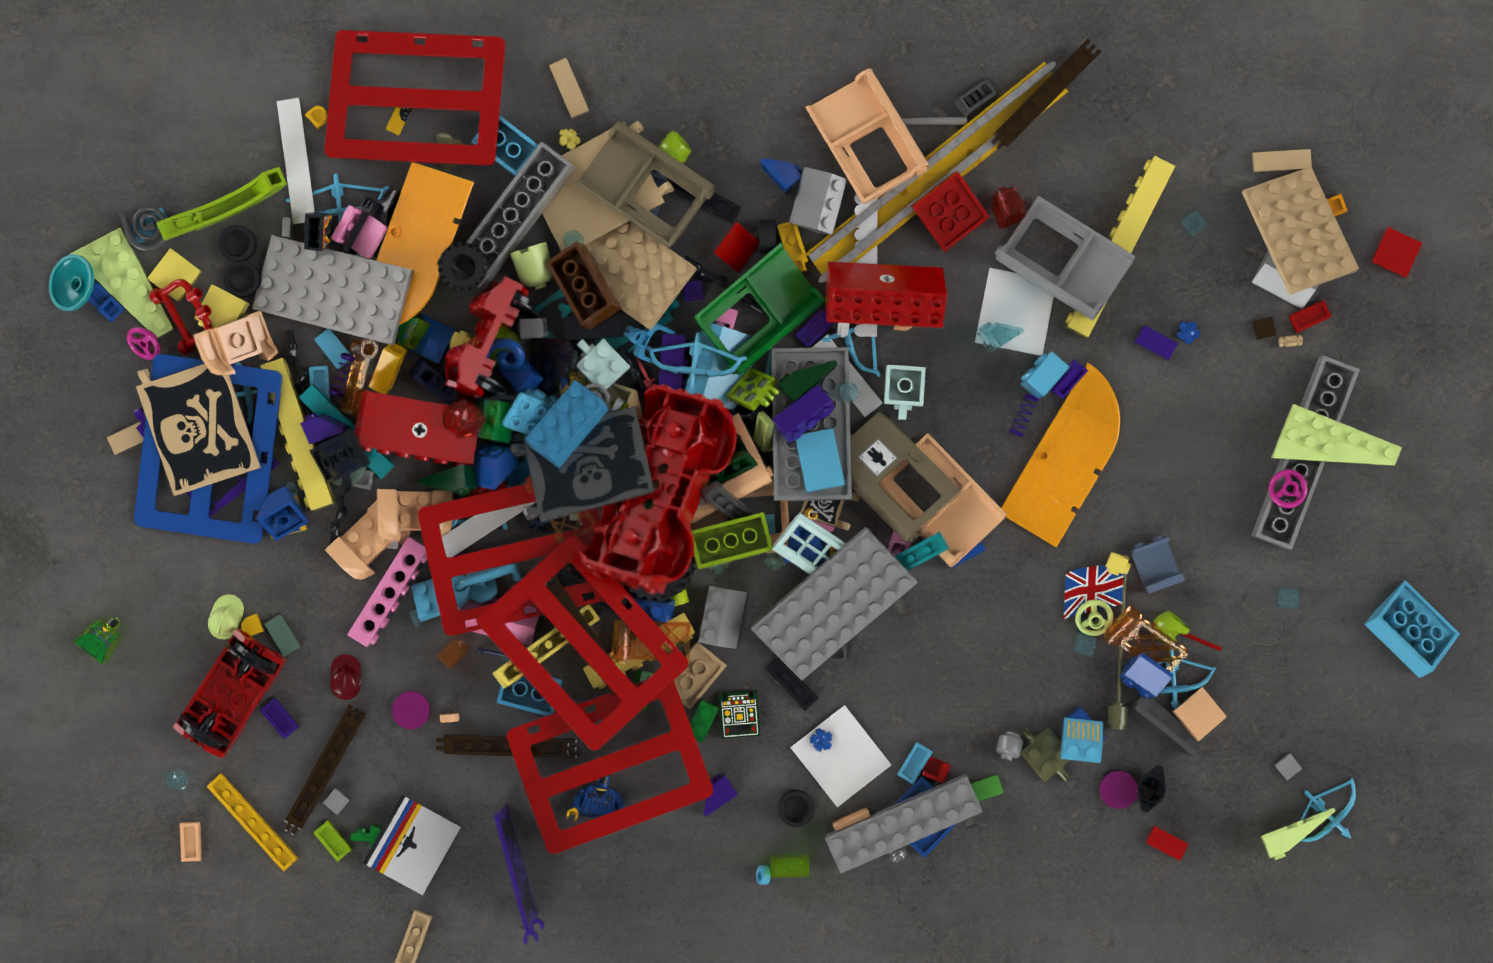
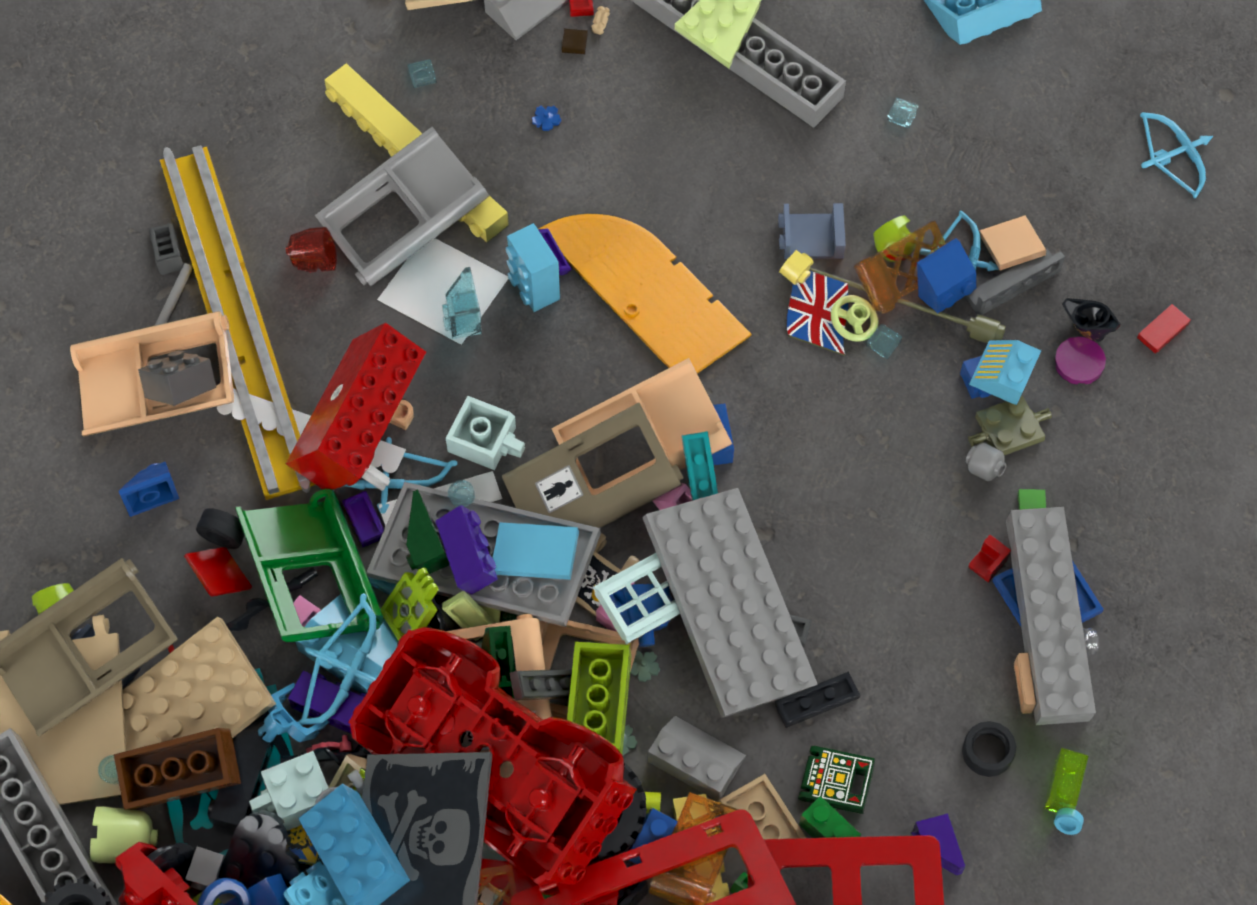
camera: 75 degrees left, 25 degrees down
(693, 291) = (253, 647): dark purple tile -> none
(716, 204) = (155, 582): black tile -> none
(793, 244) = (247, 501): yellow hinge -> none
(818, 201) = (205, 454): light grey slope -> none
(821, 740) = (906, 686): blue plant -> none
(848, 763) = (935, 672): white sticker -> none
(866, 157) = (177, 378): none -> dark grey brick
(915, 763) = (973, 581): medium azure tile -> none
(950, 211) = (288, 313): red plate -> none
(1028, 396) = (595, 325): dark purple piece -> none
(1045, 95) = (199, 168): dark brown hinge -> none
(1156, 342) = (544, 152): dark purple tile -> none
(1202, 641) = (924, 216): red piece -> none
(1286, 838) = (1194, 194): yellowish green wedge -> none
(1288, 766) = (1106, 173): light grey tile -> none
(1294, 492) = (773, 53): dark pink piece -> none

